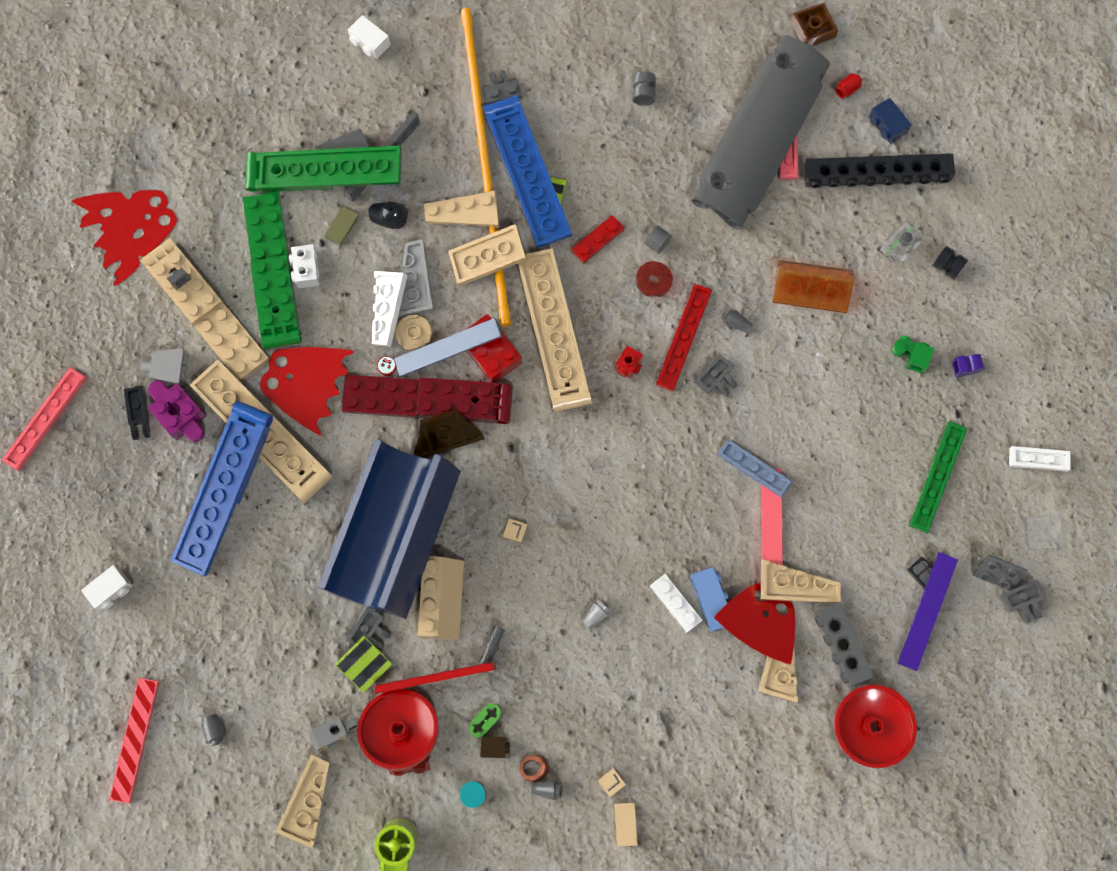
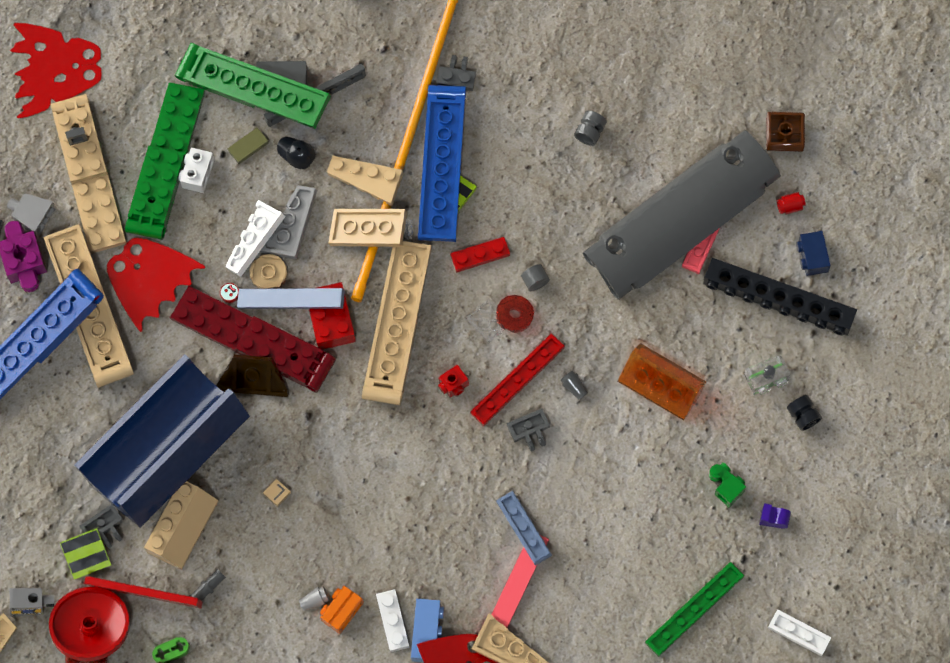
camera: 25 degrees right, 5 degrees down
(626, 613) = (341, 609): none -> orange brick

